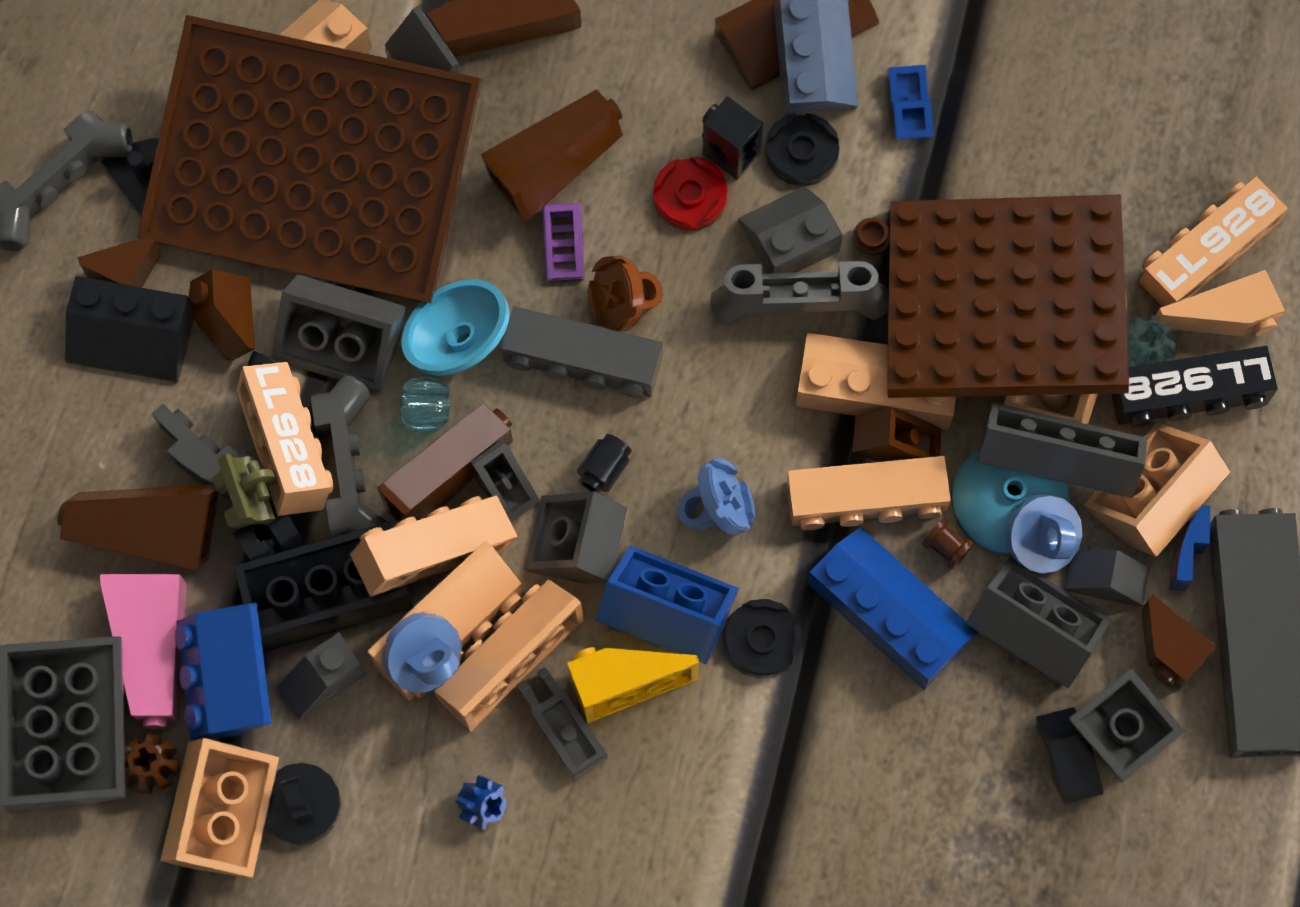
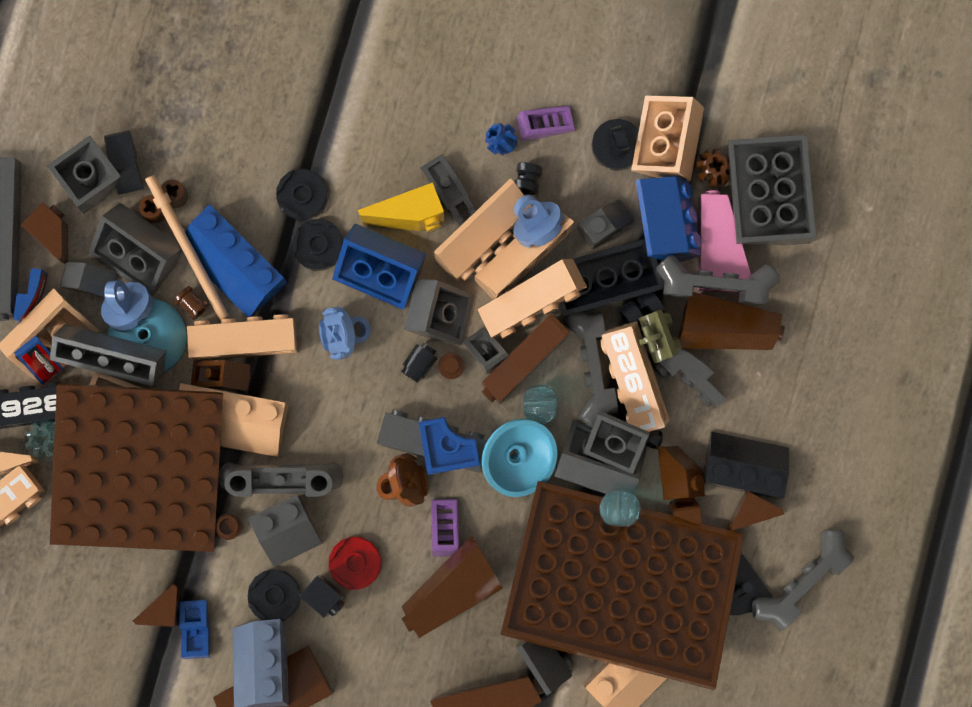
camera: 175 degrees right, 10 degrees up
(105, 563) = (752, 290): none -> dark grey plate
(217, 260) = (686, 509): none -> reddish brown slope
(311, 254) = (619, 508): none -> clear light blue piece
(312, 341) = (616, 442): none -> dark grey slope
(440, 742) = (528, 177): none -> black wheel
(445, 828) = (527, 133): none -> medium lavender slope
(556, 462) = (451, 366): none -> reddish brown plate
(562, 332) = (445, 449): none -> blue tile
(790, 715) = (302, 194): none -> black tile
(956, 120) = (163, 610): none -> reddish brown slope
(999, 679) = (163, 202): none -> light nougat bar
(1002, 694) = (167, 186): none -> reddish brown axle
(1169, 442) = (37, 360): none -> slope

